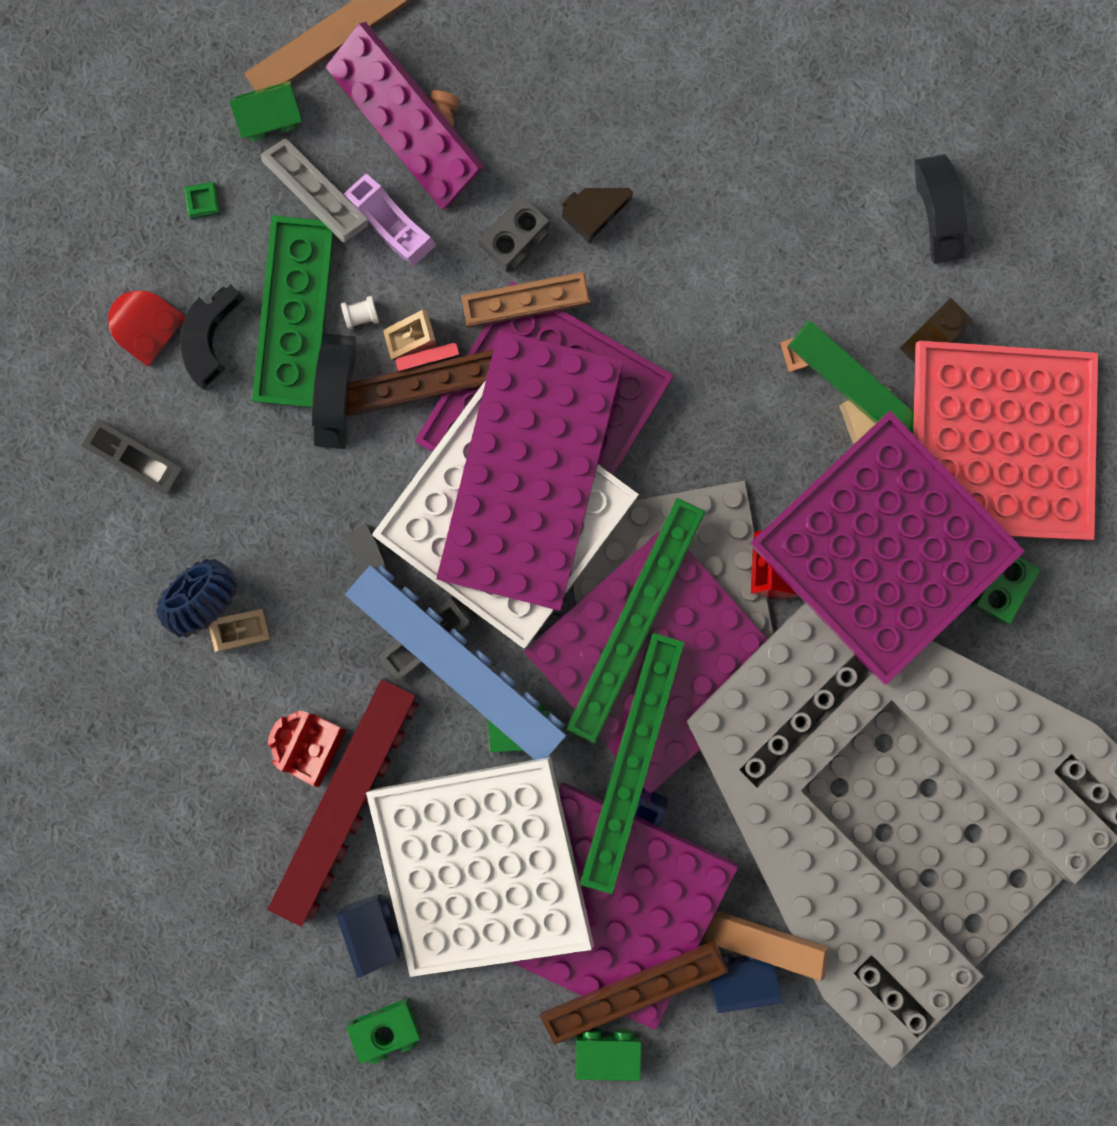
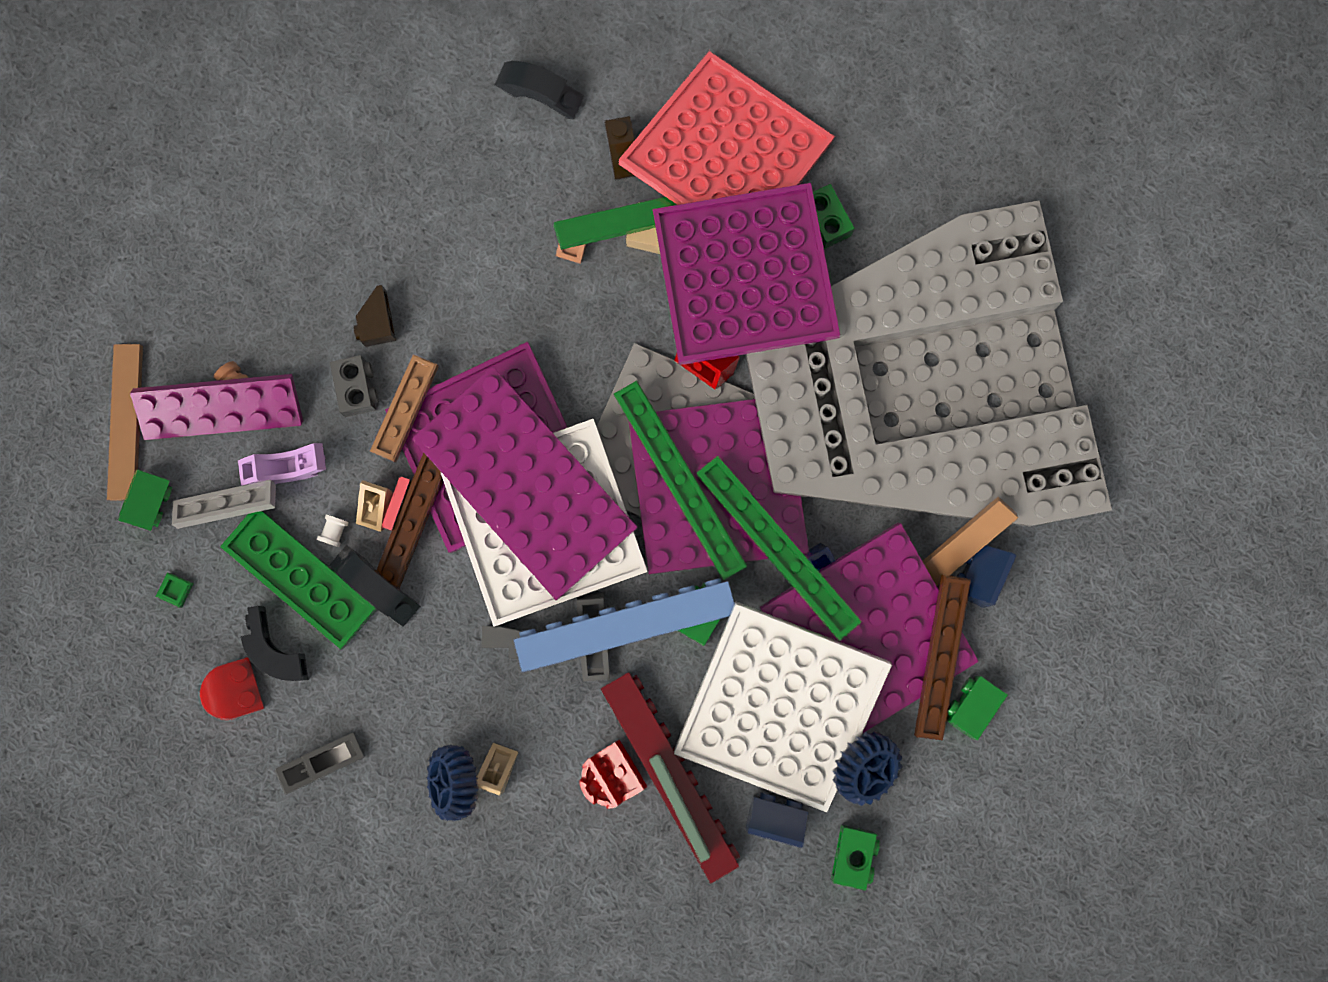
camera: 45 degrees left, 5 degrees down
(318, 833) = (680, 808): none -> sand green tile
(476, 989) = (867, 768): none -> dark blue gear

